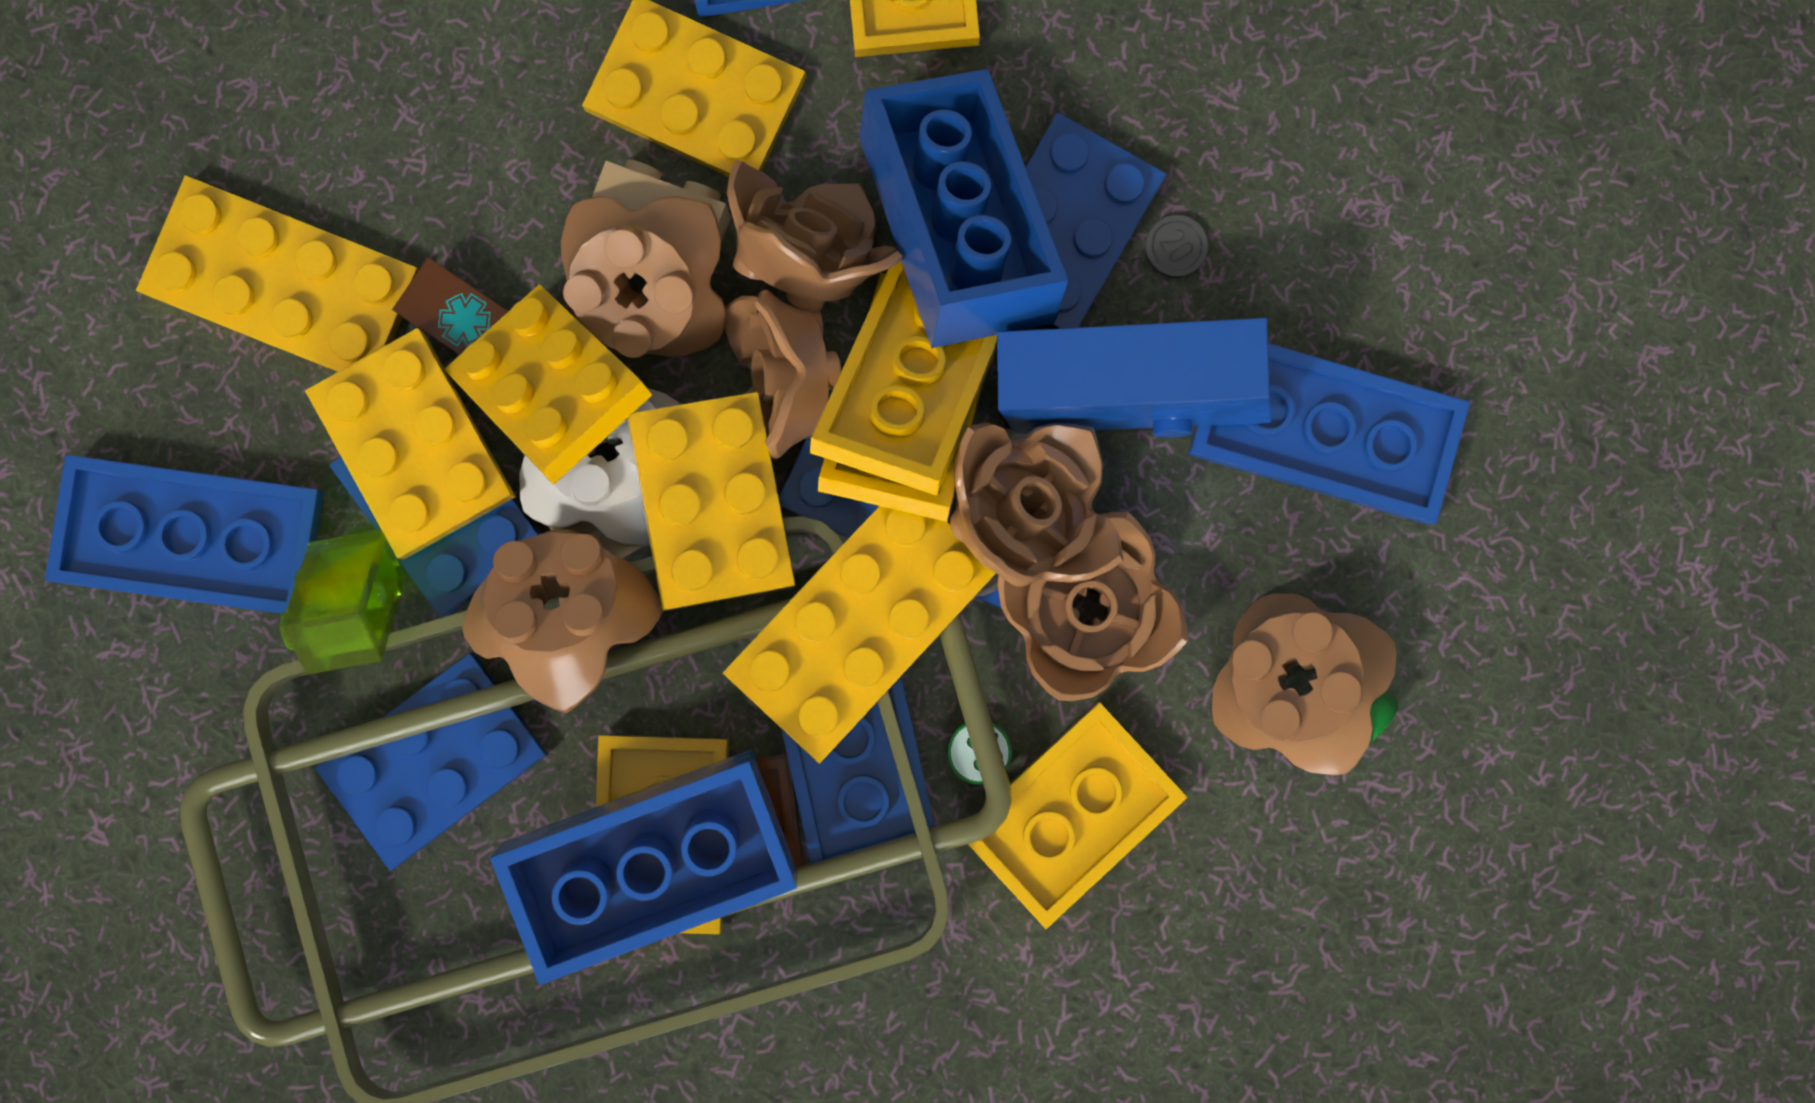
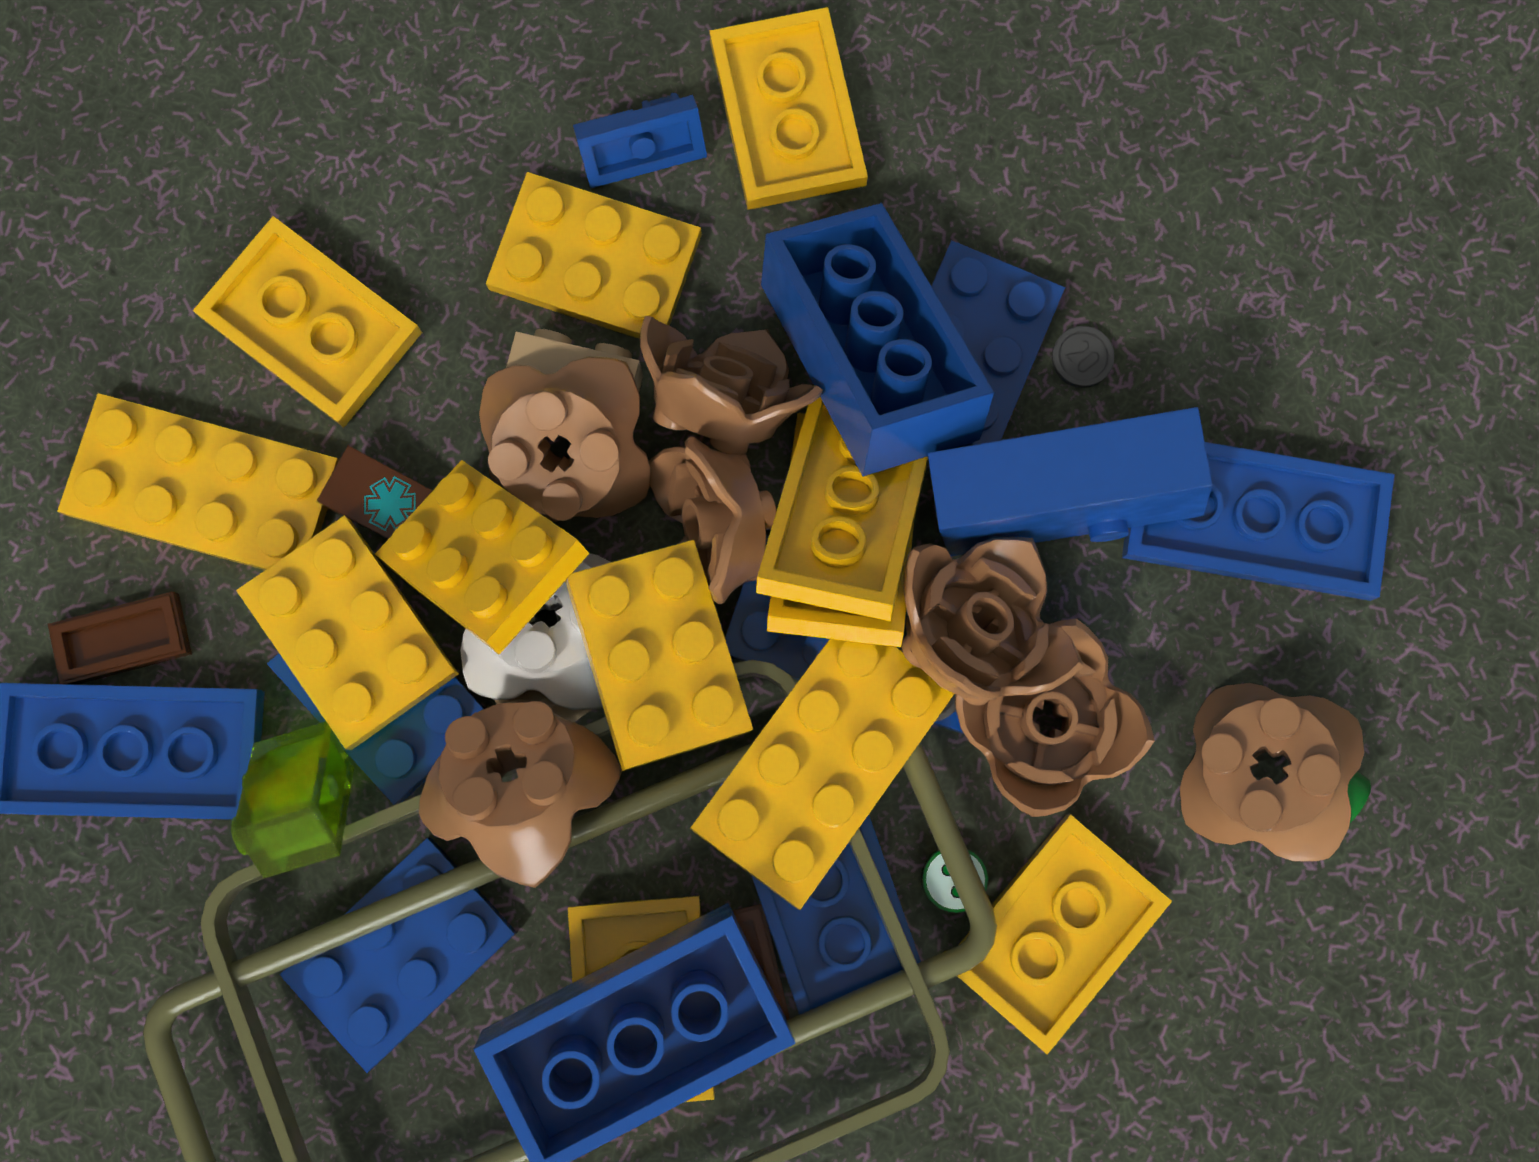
camera: 10 degrees left, 5 degrees down
(187, 424) = (119, 639): none -> reddish brown tile
(400, 125) = (308, 321): none -> yellow plate

